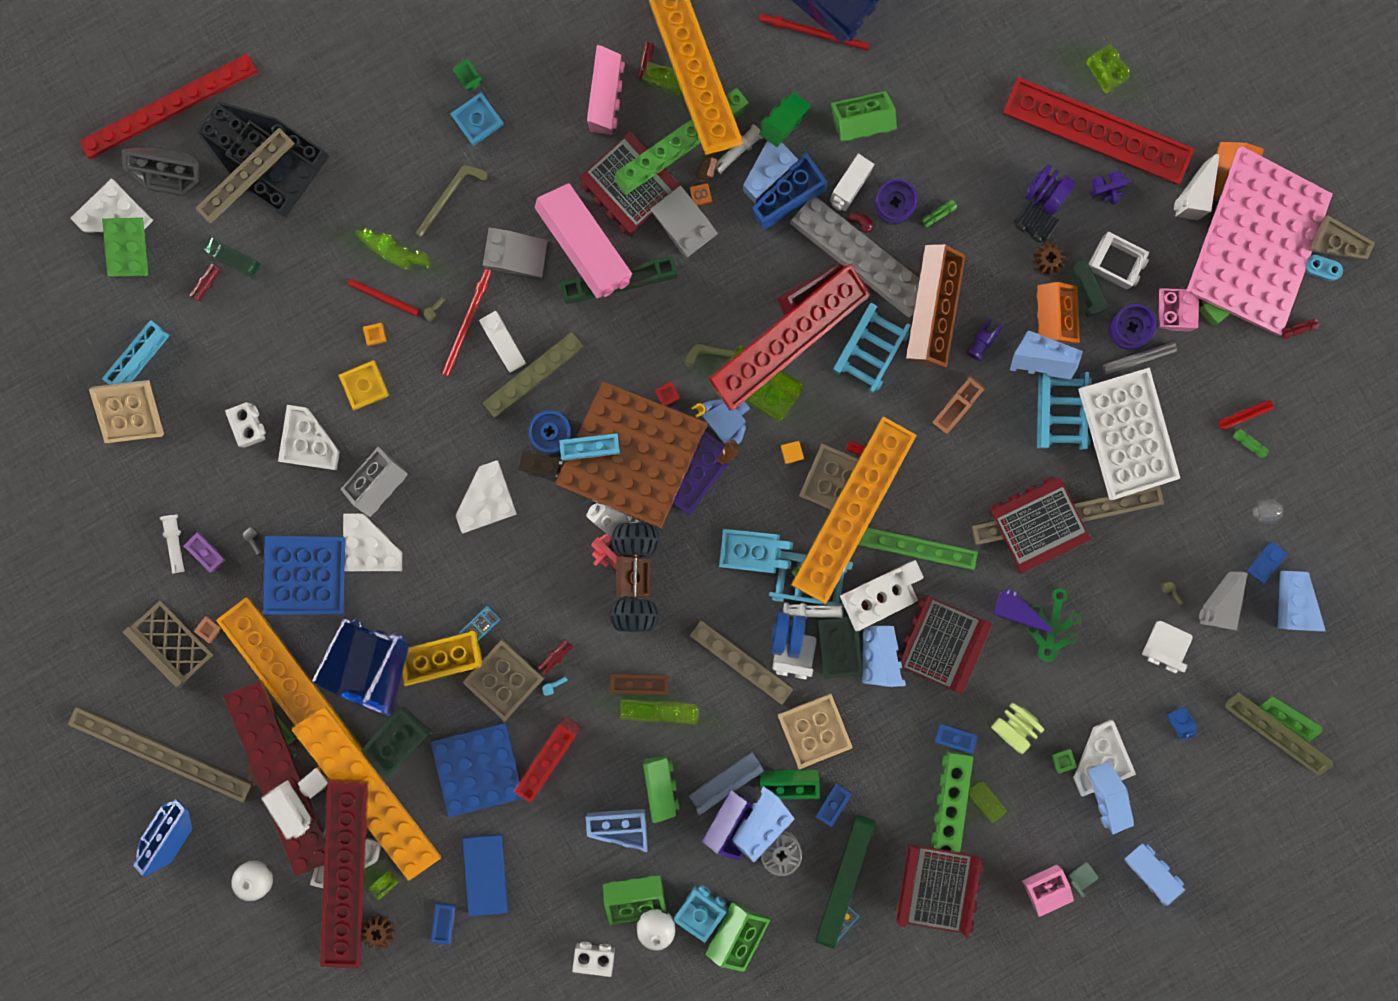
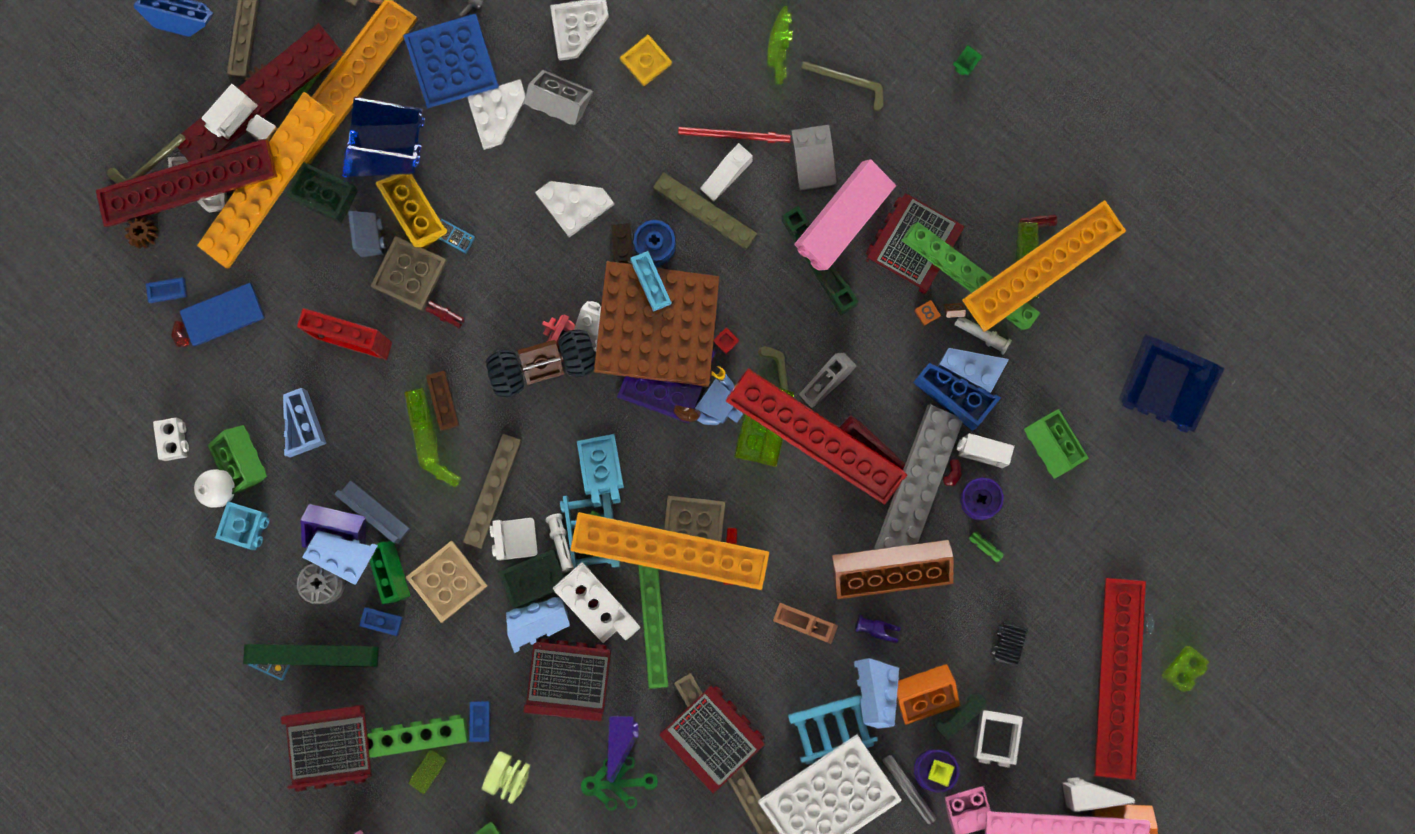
camera: 75 degrees right, 5 degrees down
(252, 880) = (157, 105): white cylinder -> none
(309, 943) = (118, 178): none -> olive piece
(374, 334) = (696, 55): light orange tile -> none
(381, 883) = (187, 221): clear neon green wheel -> none
(383, 297) = (733, 52): red bar -> none
(429, 312) = (732, 97): olive hand -> none
(451, 709) = (366, 233): none -> sand blue slope
(476, 769) = (318, 274): blue plate -> none
(477, 119) = (929, 83): dark azure plate -> none
(492, 925) = (177, 335): none -> clear red arm
(548, 688) = (413, 317): medium azure hand -> none
(604, 91) = (995, 191): bright pink slope -> none
(661, 788) = (348, 450): bright green slope -> none
(683, 221) = (895, 303): light grey slope -> none
(710, 704) = (442, 473): none -> clear neon green pin
(735, 309) = (828, 379): none -> light grey slope
(737, 937) = (228, 569): bright green slope -> none
(779, 22) = (1119, 334): red bar -> none
(784, 119) = (1025, 366): green brick -> none
(785, 634) = (529, 521): blue wheel -> none
(792, 452) = (708, 476): light orange tile -> none
(853, 349) = (826, 503): medium azure fence -> none
(1049, 189) = (1044, 646): dark purple wheel -> none
(1052, 252) = (979, 661): reddish brown gear -> none
(1117, 182) = (1075, 713): dark purple hips -> none
(1138, 322) = (941, 772): none -> neon yellow plate

